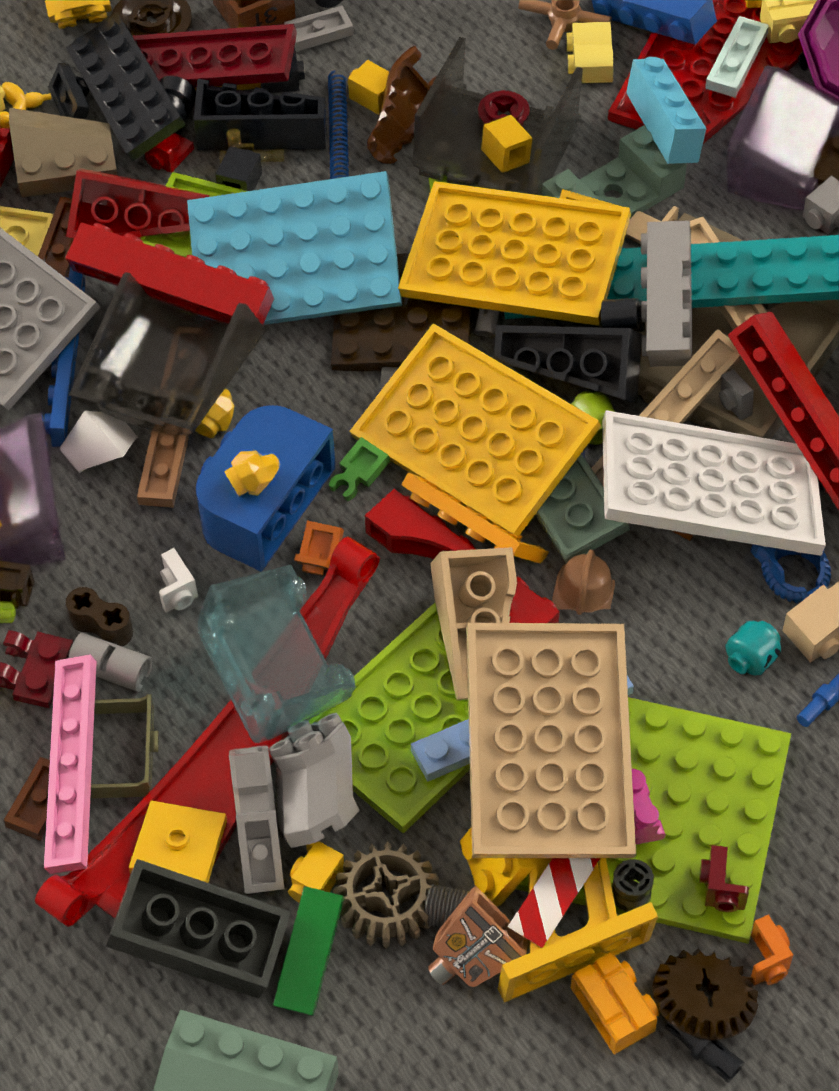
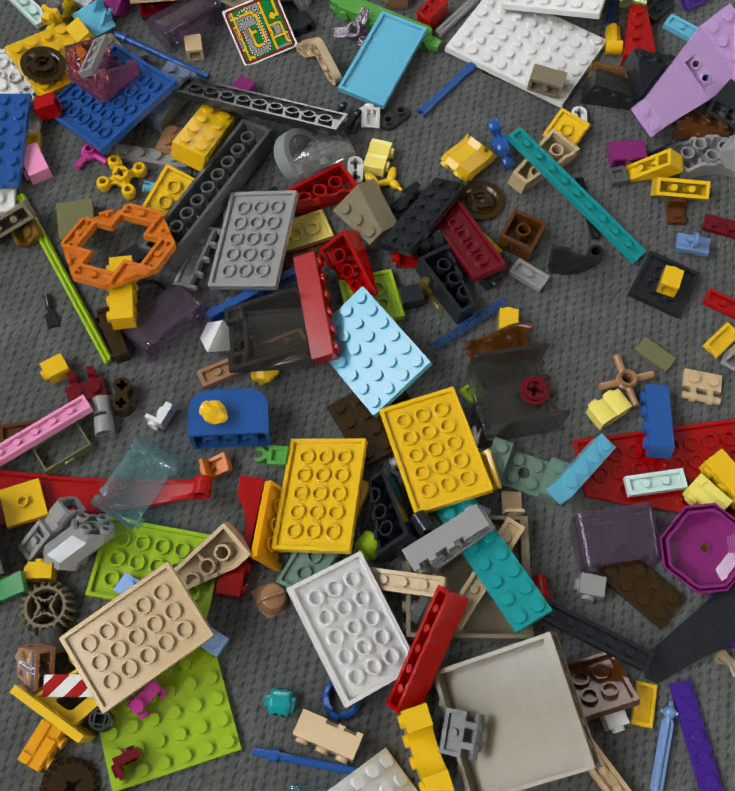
camera: 55 degrees right, 10 degrees up
(506, 143) = (510, 404): yellow brick -> none

